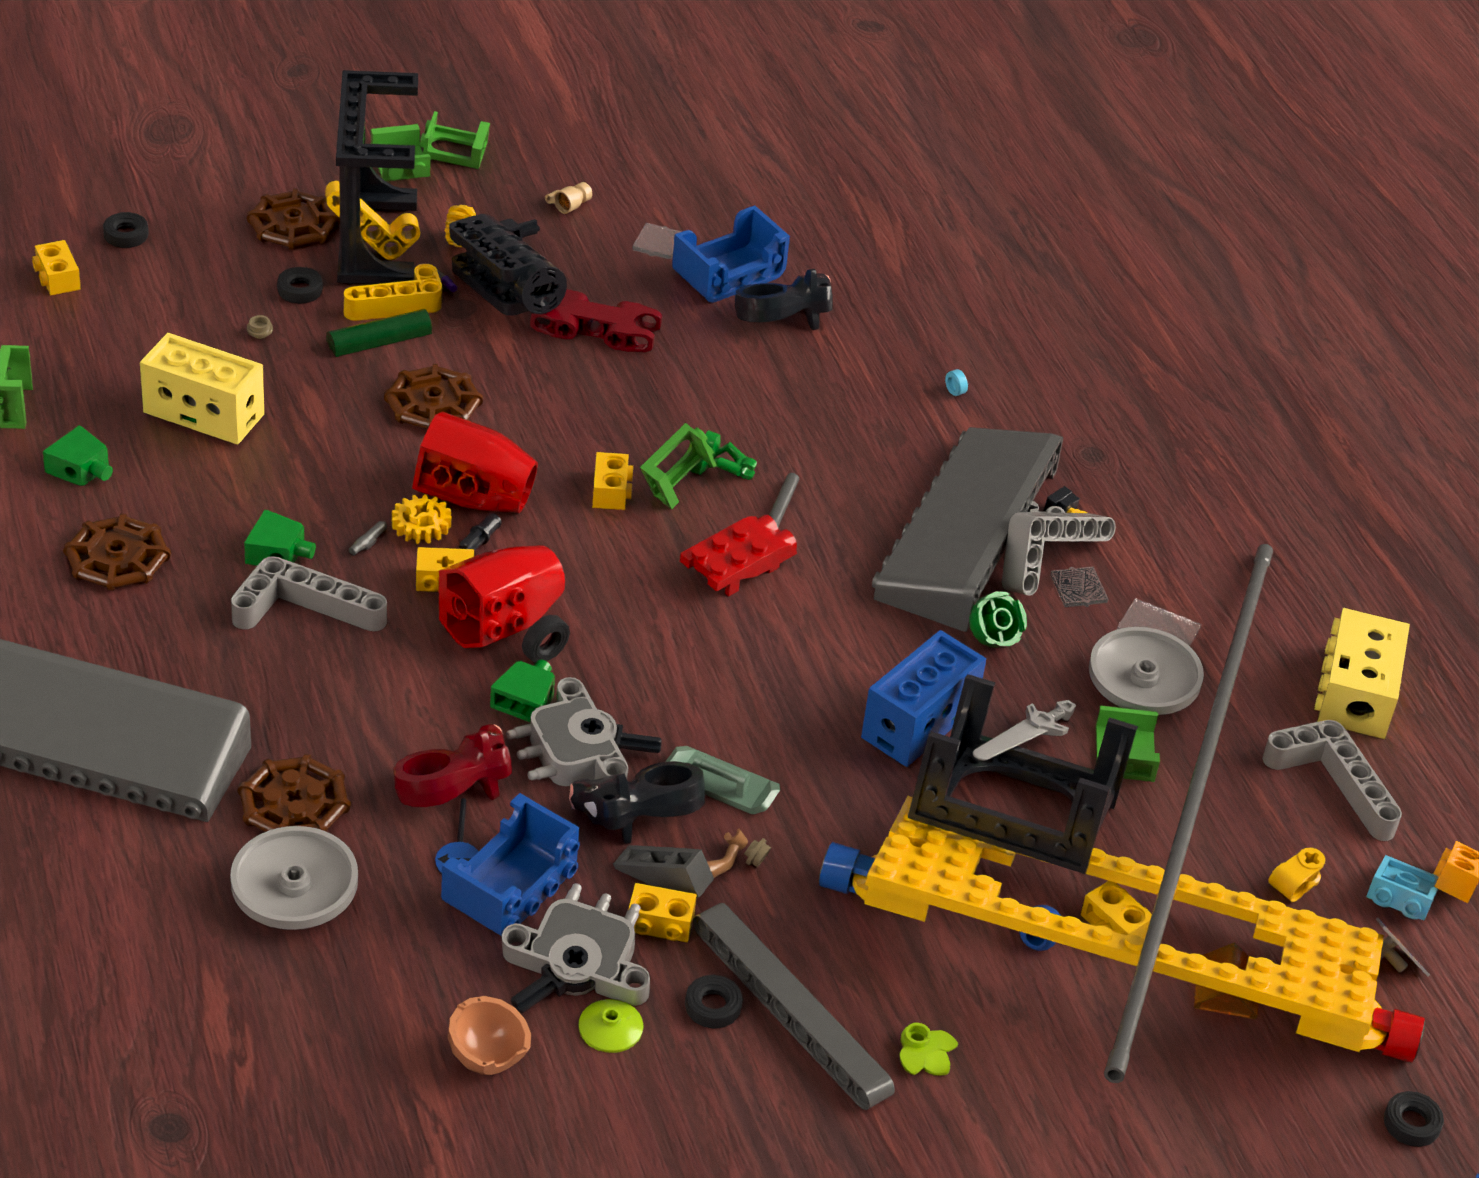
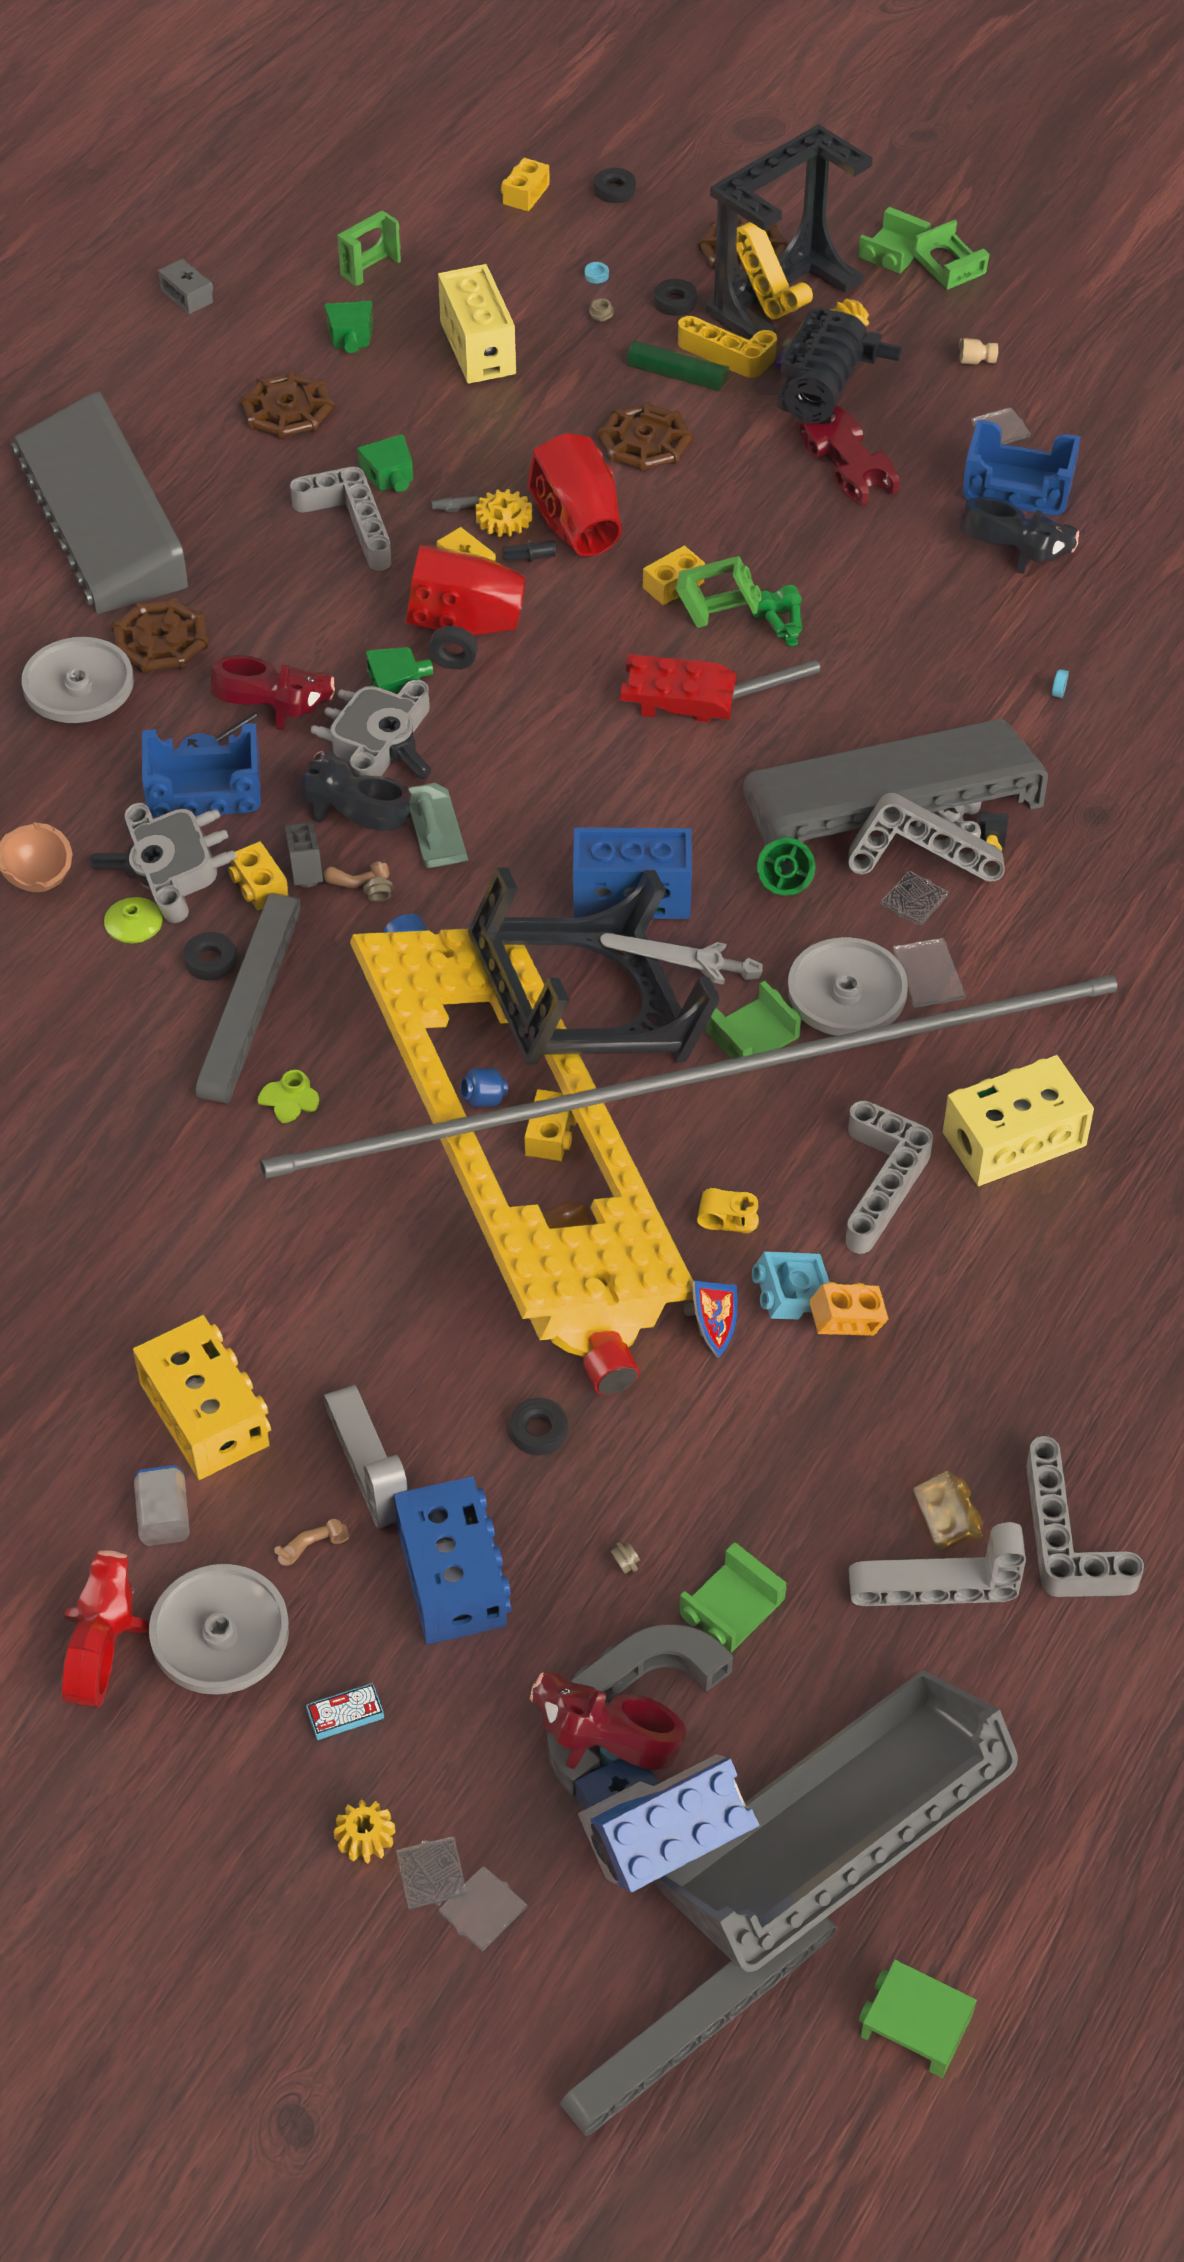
camera: 55 degrees right, 10 degrees up
(209, 303) = (596, 272): none -> medium azure tile

